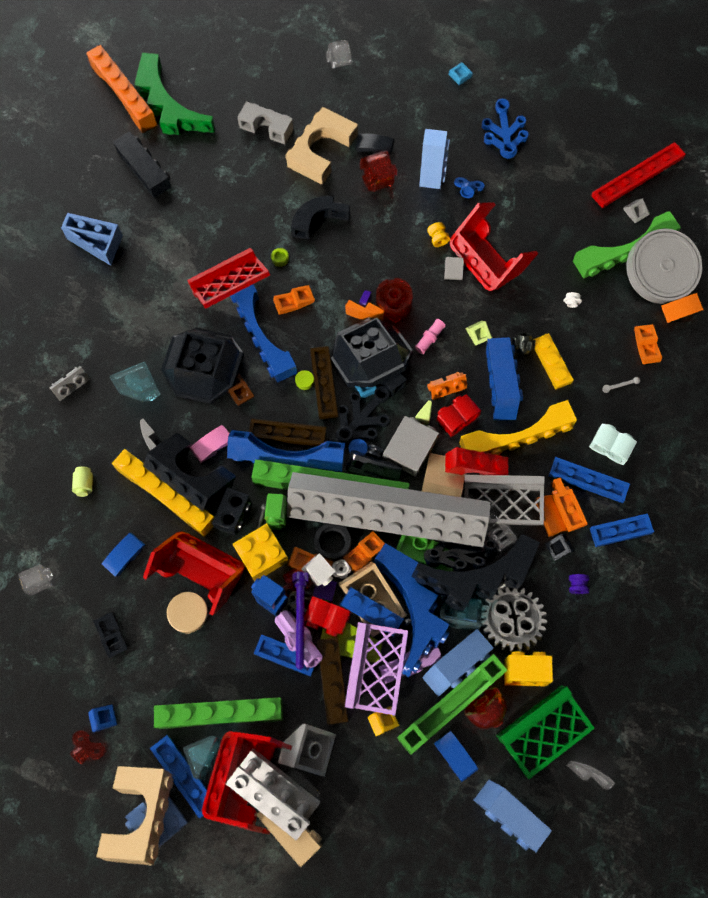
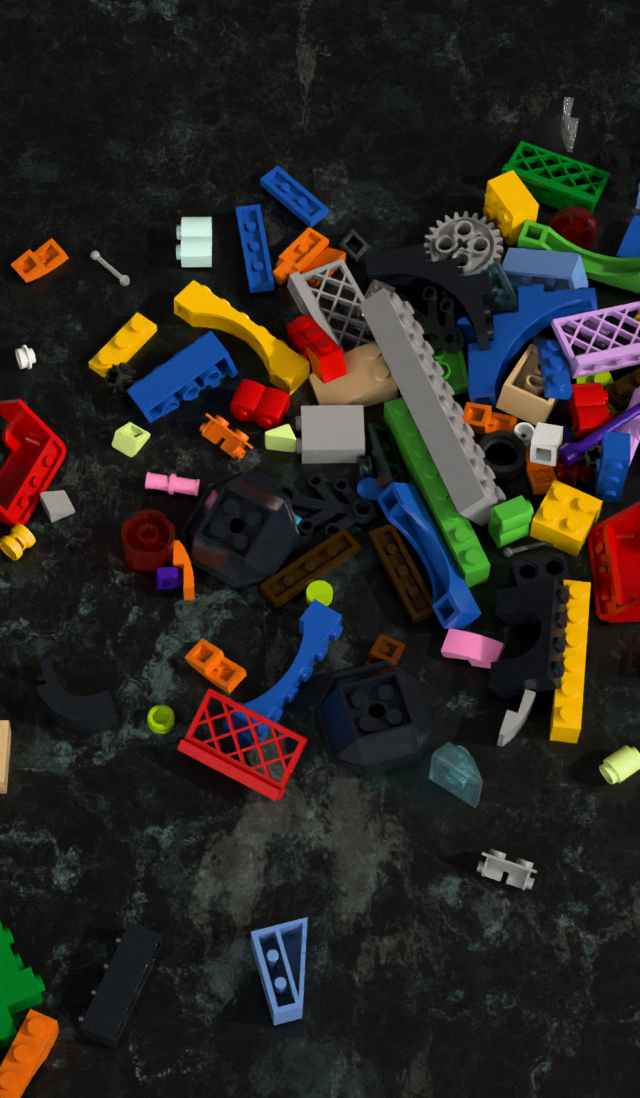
camera: 125 degrees left, 10 degrees down
(579, 584) = (382, 208): dark purple wheel -> none

